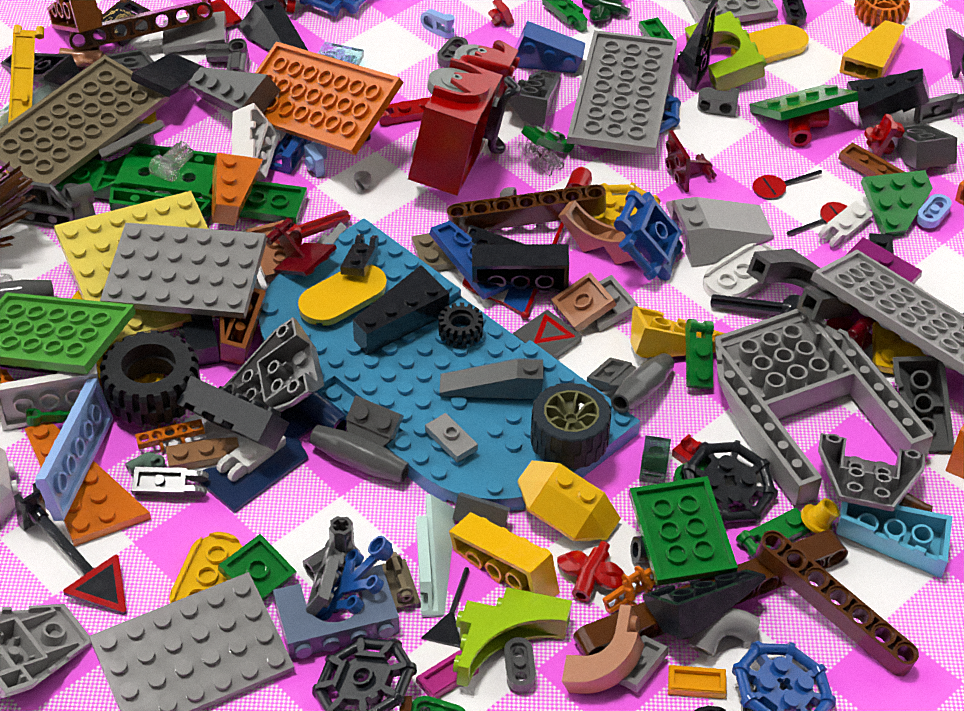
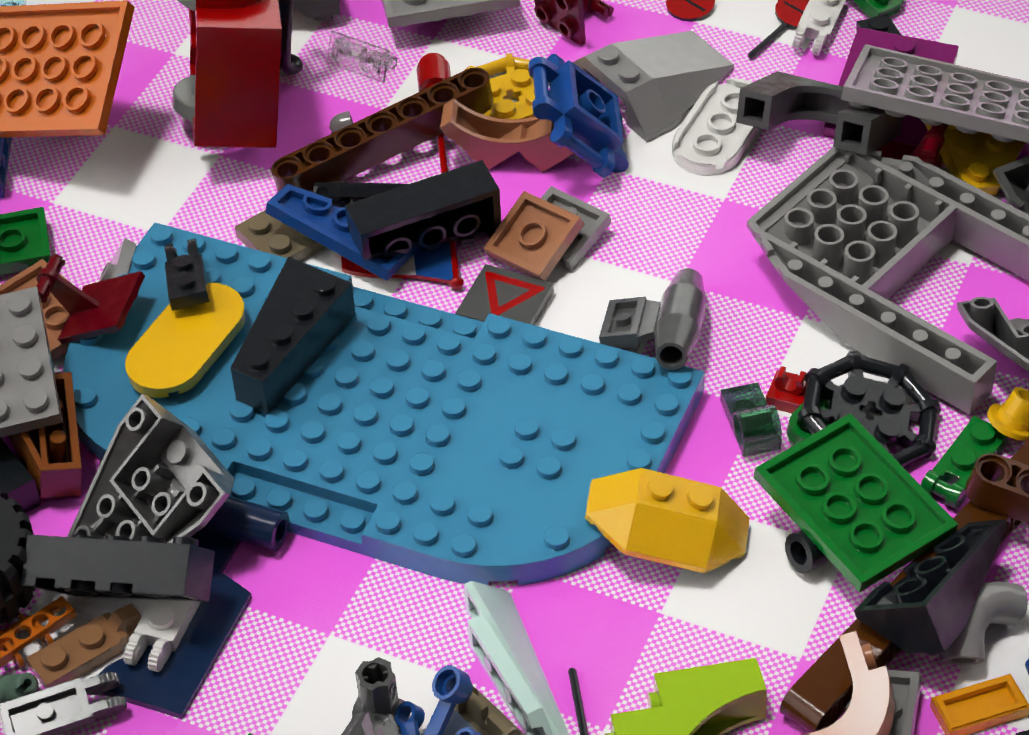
camera: 20 degrees left, 0 degrees up
(314, 158) = (32, 162): light blue bracket -> none
(316, 226) = (89, 255): red axle -> none
(362, 180) = (120, 164): light grey hinge -> none
(364, 442) = (331, 540): dark grey plate -> none
(404, 112) = (147, 49): red plate -> none
(451, 437) = (458, 488): light grey plate -> none
(461, 335) = (385, 309): black tyre -> none
(491, 511) = (554, 582): dark grey tile -> none
(504, 379) = (481, 382): dark grey wedge -> none
(505, 555) = (623, 629): yellow wedge -> none
(549, 139) = (361, 30): green hinge -> none
(570, 425) = (624, 409): black wheel -> none
(591, 570) = (751, 606): red plant -> none
(627, 588) = (820, 609): orange piece -> none
(657, 335) = (660, 249): yellow wedge -> none
(699, 354) = (733, 253): green plate -> none
(754, 305) = (810, 150): black axle -> none

